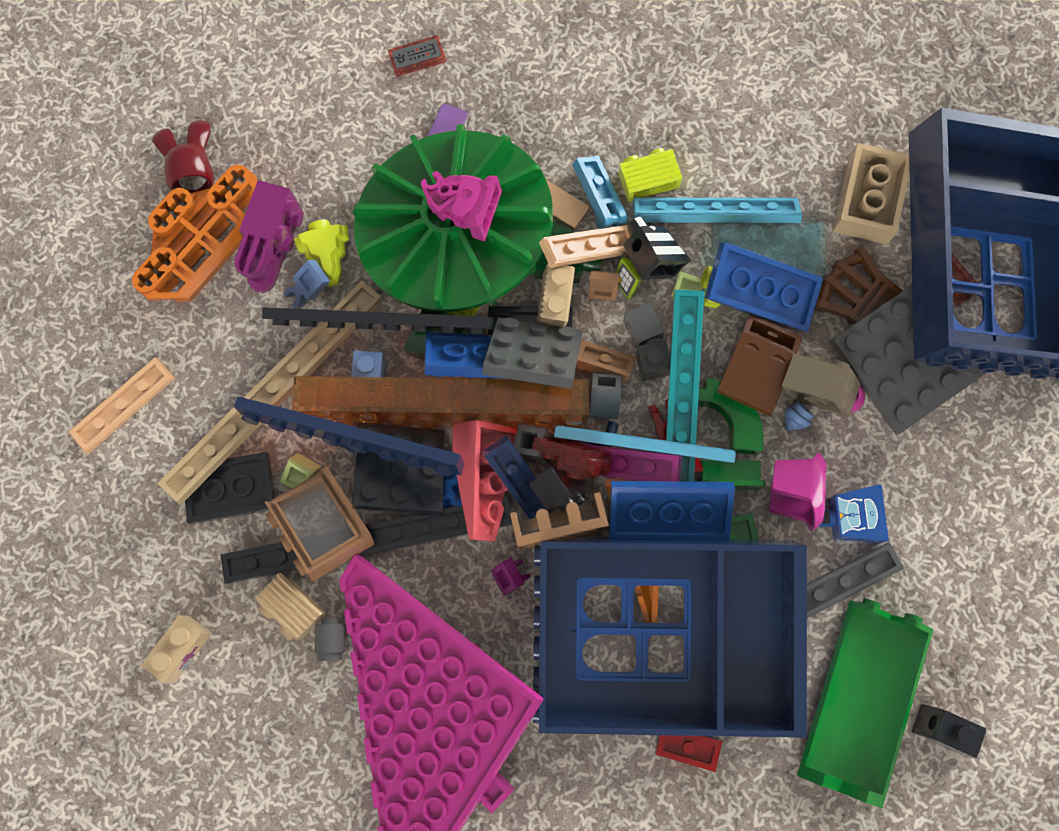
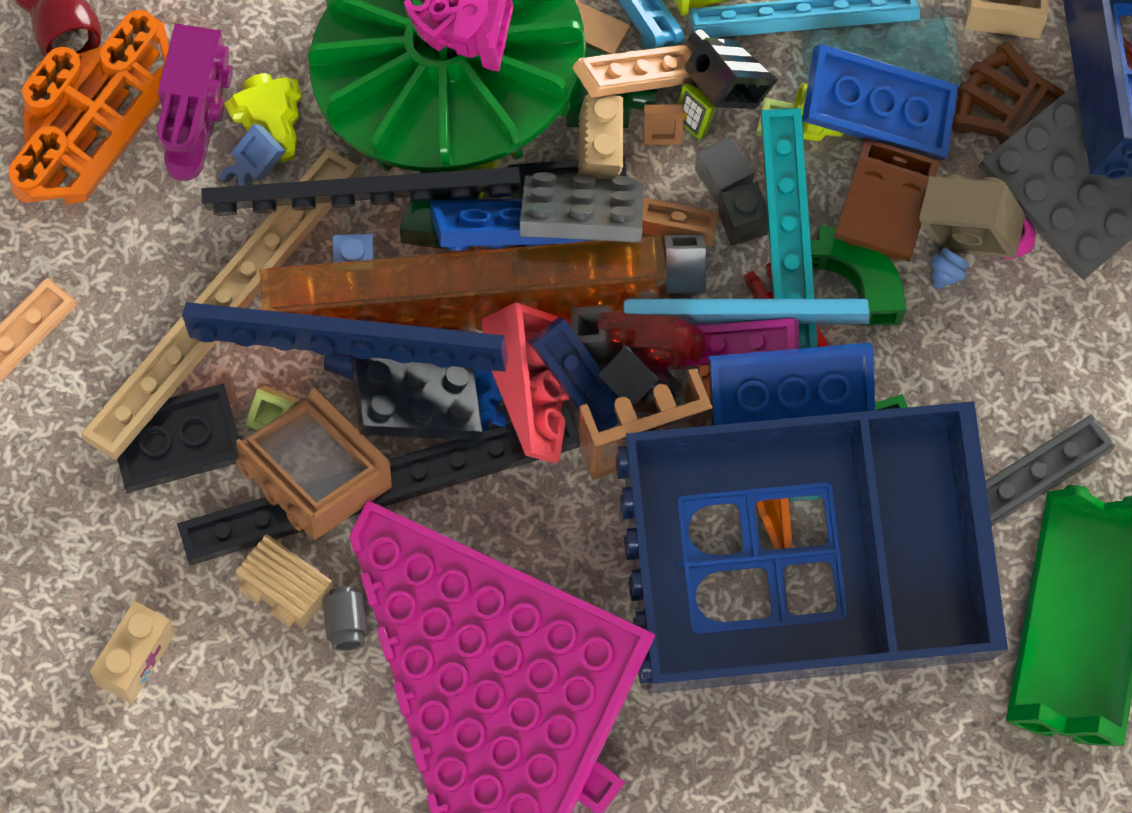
camera: 15 degrees left, 10 degrees down
(508, 576) = (582, 510): magenta tile -> none
(691, 750) = (855, 703): red plate -> none
(743, 473) = (889, 348): green panel -> none
(800, 490) = (960, 354): dark pink piece -> none
(858, 516) = (1041, 384): blue torso -> none

